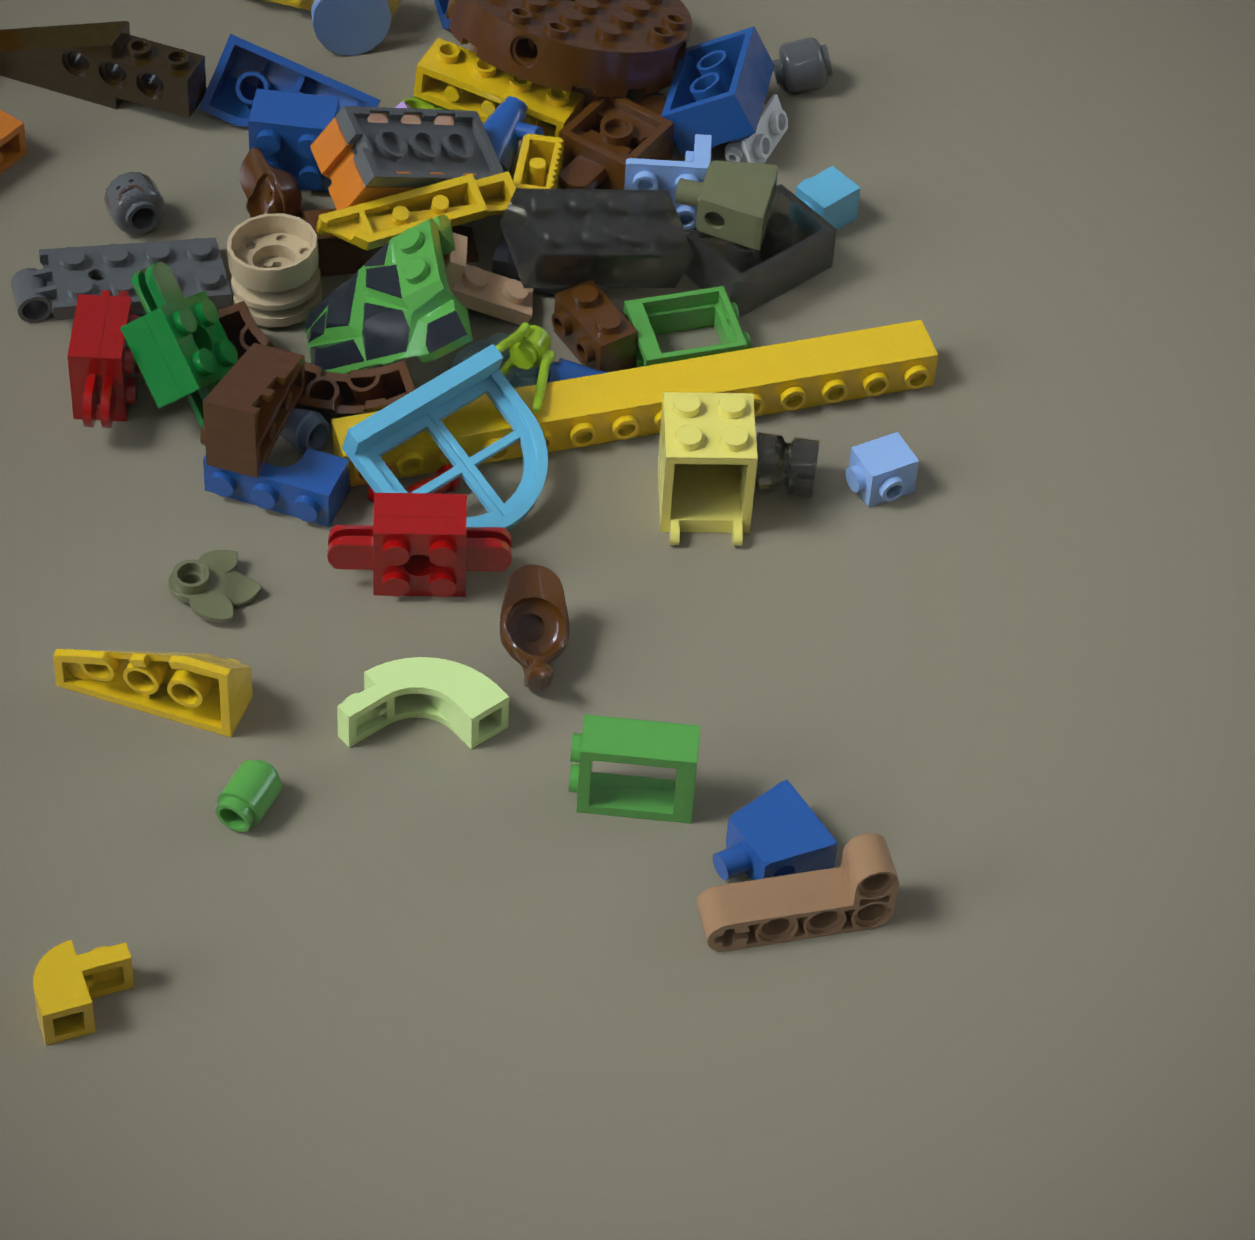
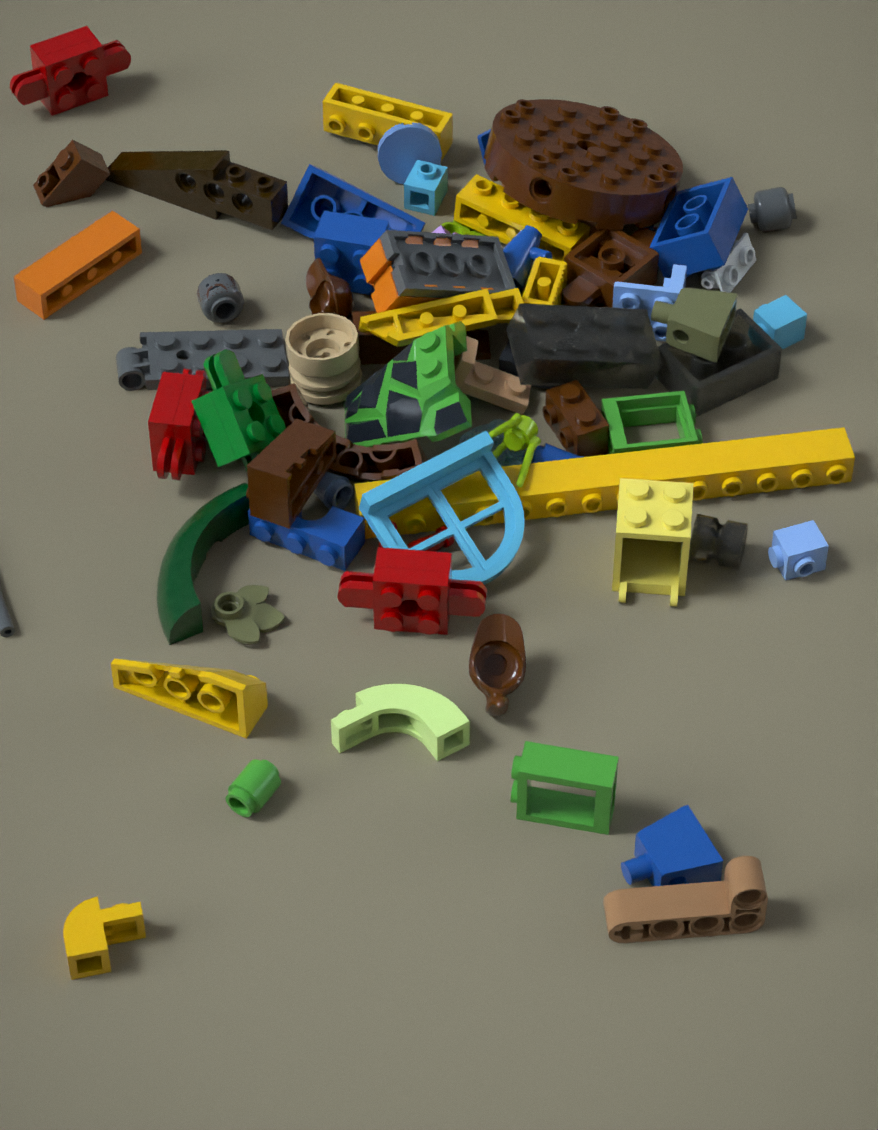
camera: 10 degrees right, 0 degrees up
(123, 569) = (176, 598): none -> dark green brick
(374, 57) = (425, 187): none -> medium azure brick

